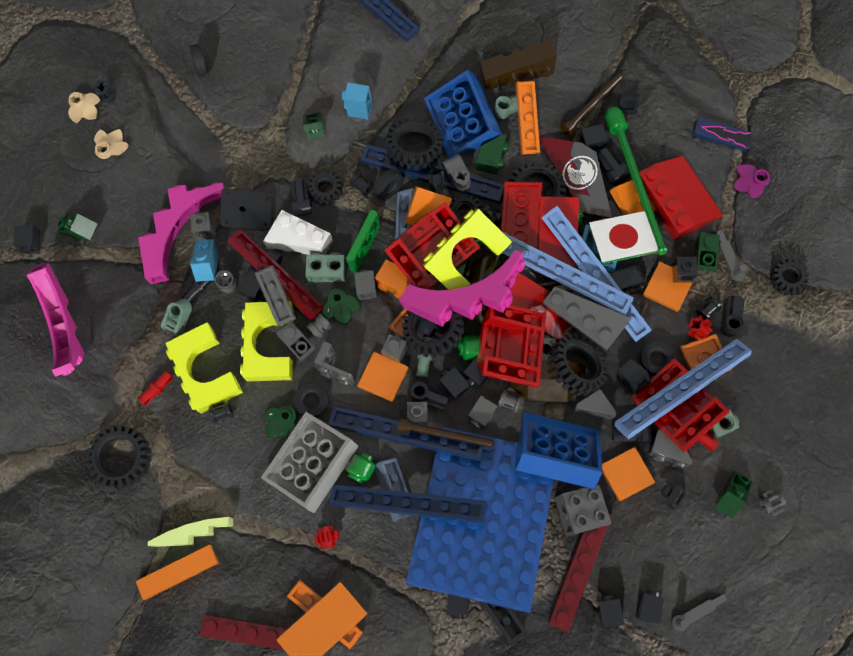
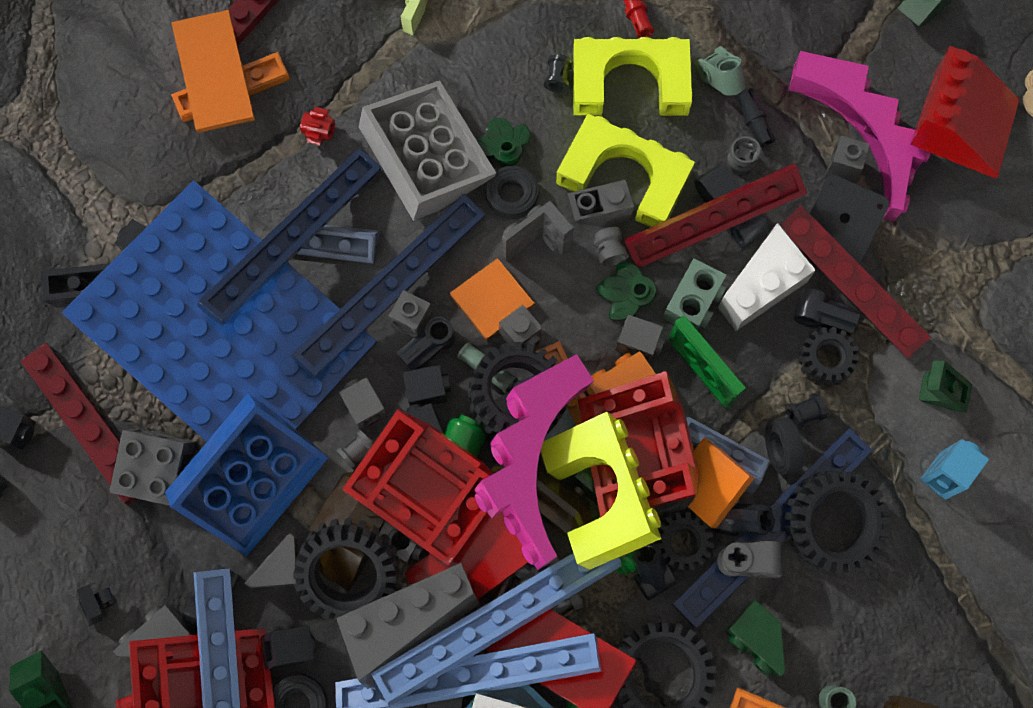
camera: 110 degrees right, 0 degrees up
(146, 176) = (967, 114): none -> red slope
(204, 260) = (788, 136): dark azure brick -> none
(275, 192) = (854, 282): none -> dark red plate
(275, 295) = (680, 198): dark grey tile -> none
(360, 468) = (382, 209): green head -> none
(406, 425) = (396, 283): dark brown piece -> none
(462, 115) = (854, 629): blue slope -> none
(522, 211) = (630, 622): red tile -> none
(627, 474) = (164, 558): orange tile -> none

